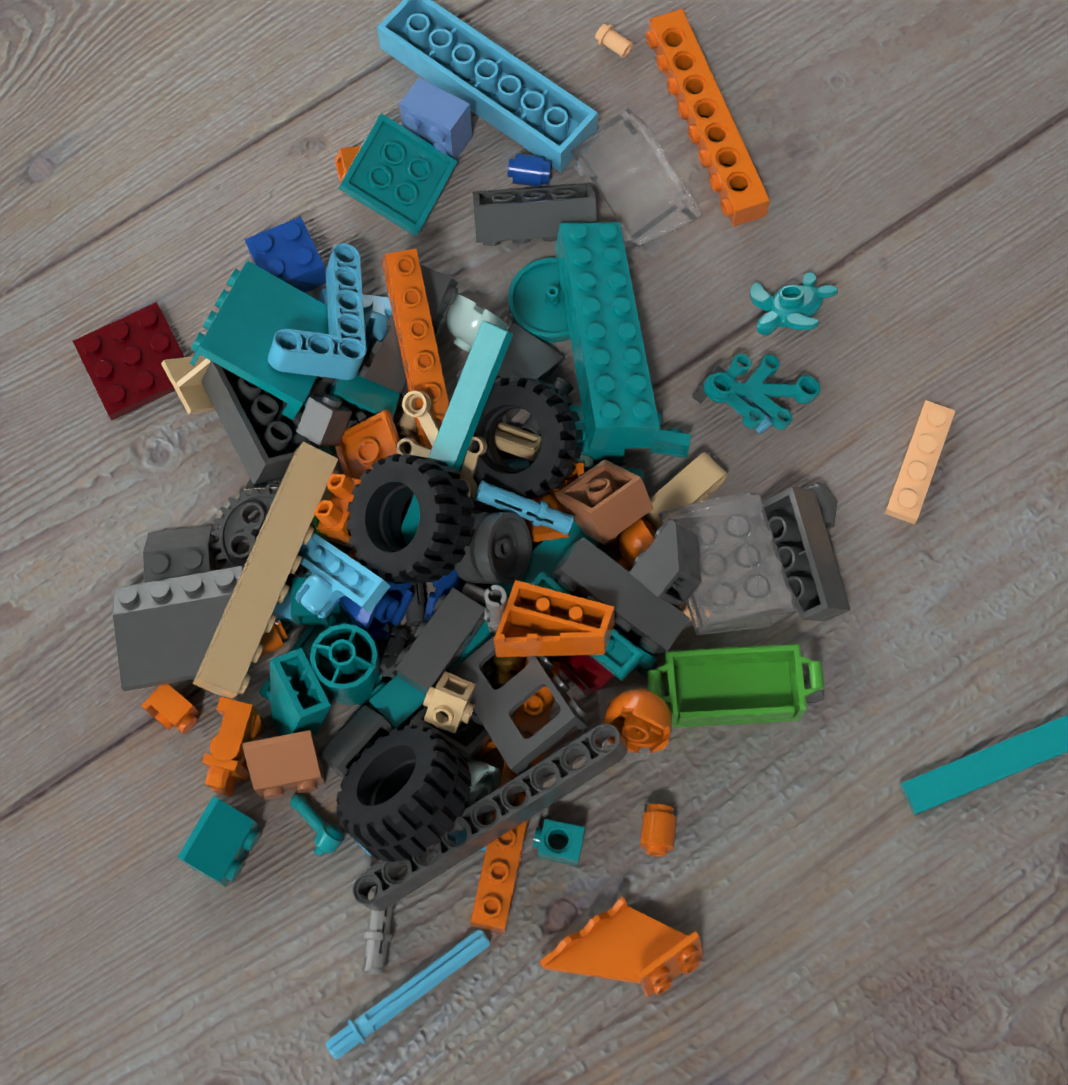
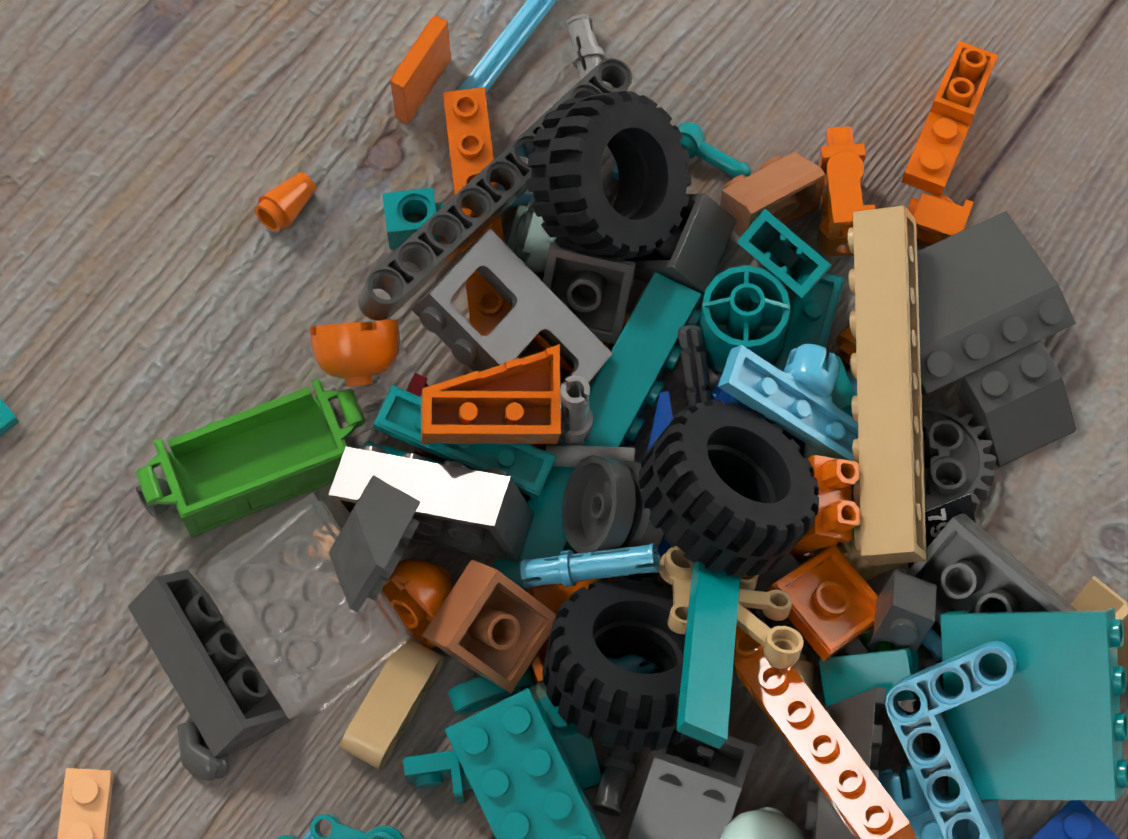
camera: 160 degrees right, 0 degrees up
(125, 788) = (949, 118): none -> orange slope
(220, 842) = (807, 88): teal slope -> none
(440, 641) = (637, 378): dark grey brick -> none
(449, 702) = (594, 293): tan brick -> none
(515, 958) = (421, 69): none -> orange tile
(627, 949) = (295, 125): orange piece -> none
(653, 891) = (283, 203): none -> orange cone
(658, 830) = (300, 269): orange brick -> none

